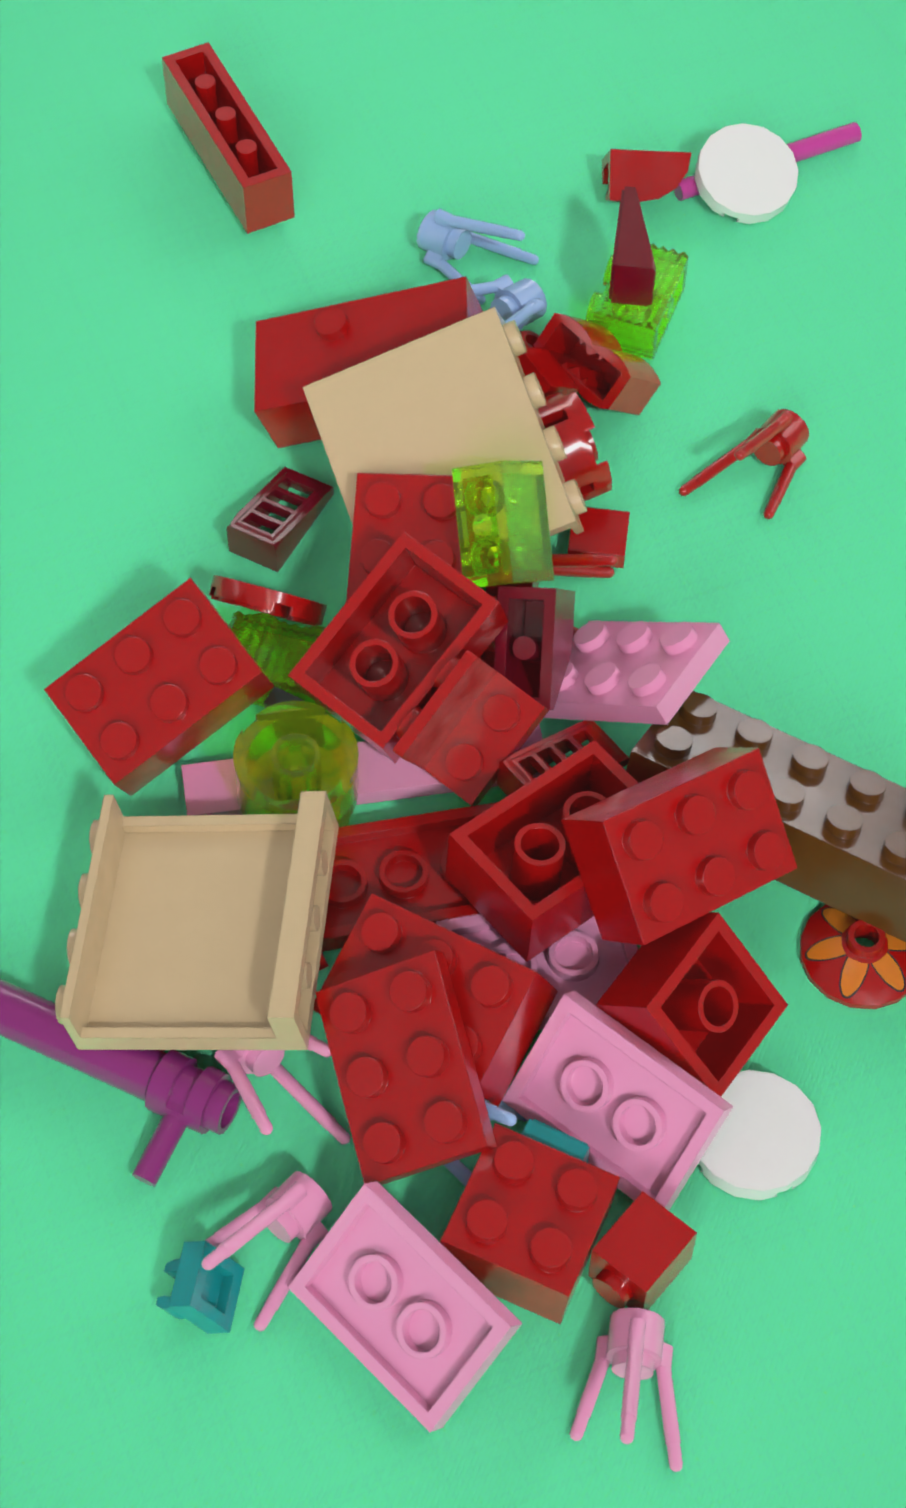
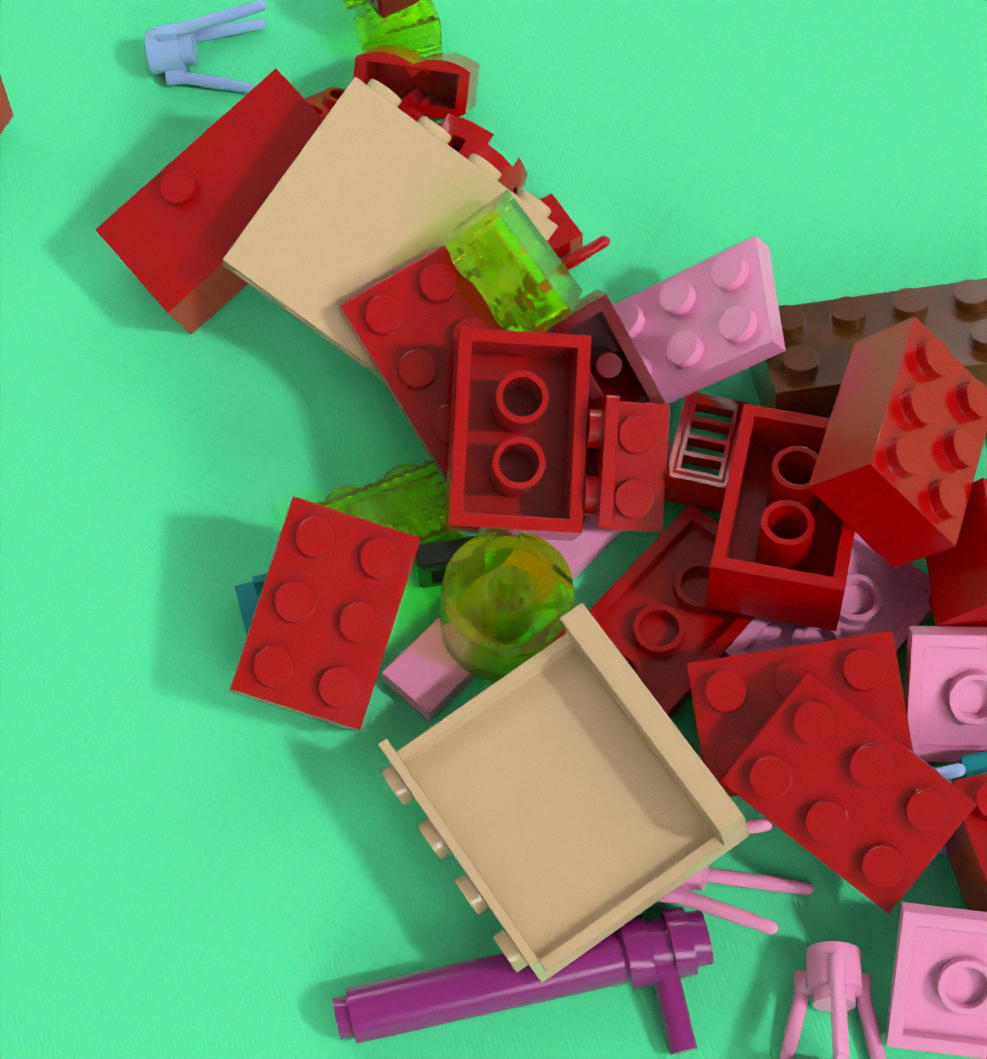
camera: 35 degrees left, 5 degrees up
(267, 601) = (333, 474): red tile -> none
(274, 549) = (262, 431): slope -> none
(515, 301) = (301, 65): light blue plant -> none
(773, 444) = (615, 59): red plant -> none

